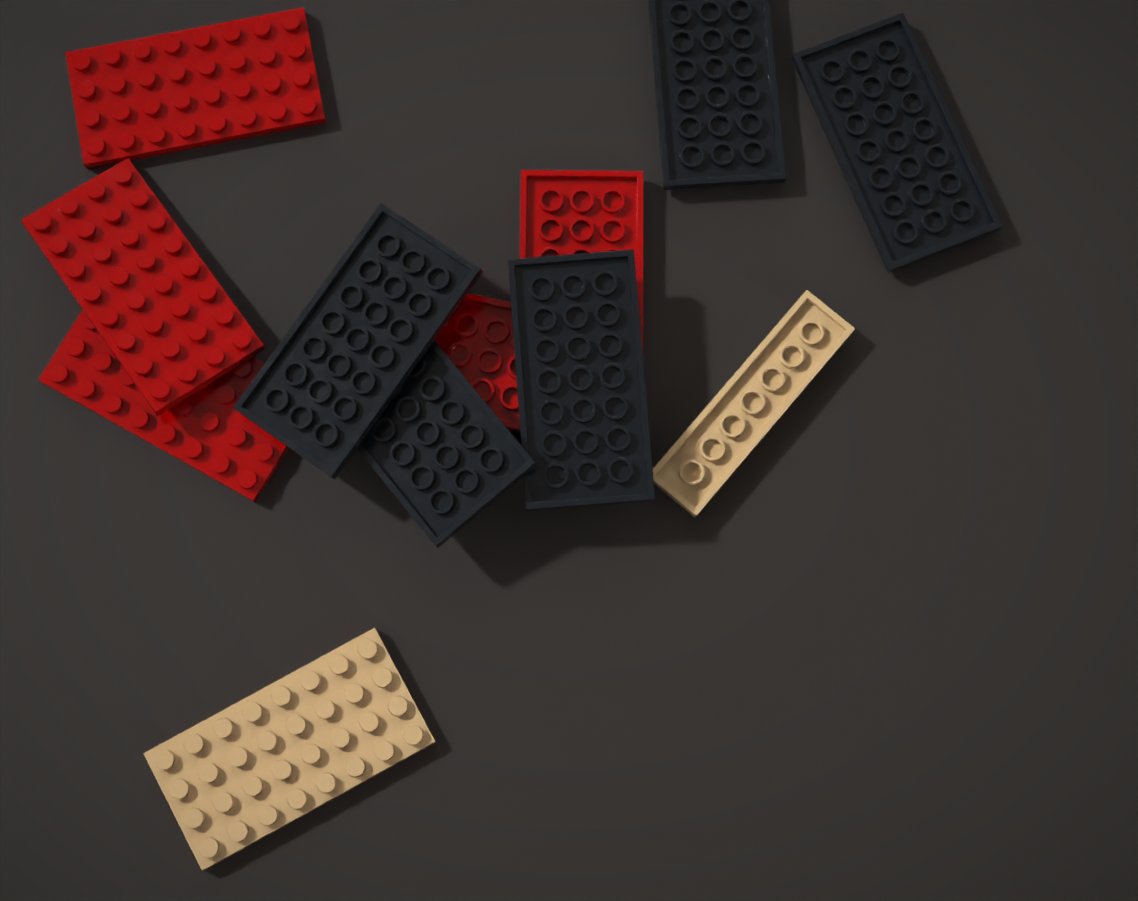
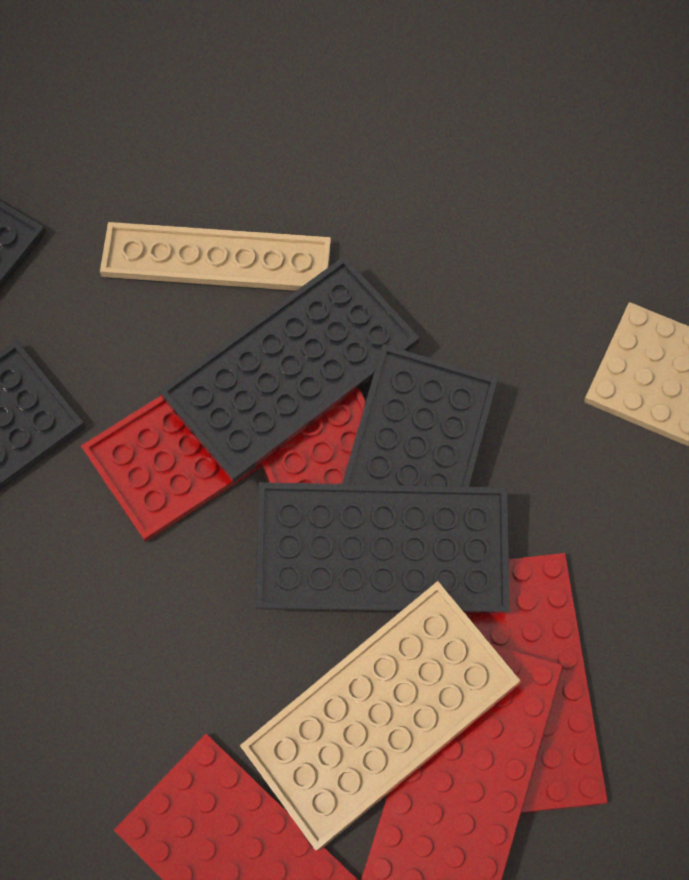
camera: 120 degrees left, 10 degrees down
(229, 249) = (379, 715): none -> tan plate

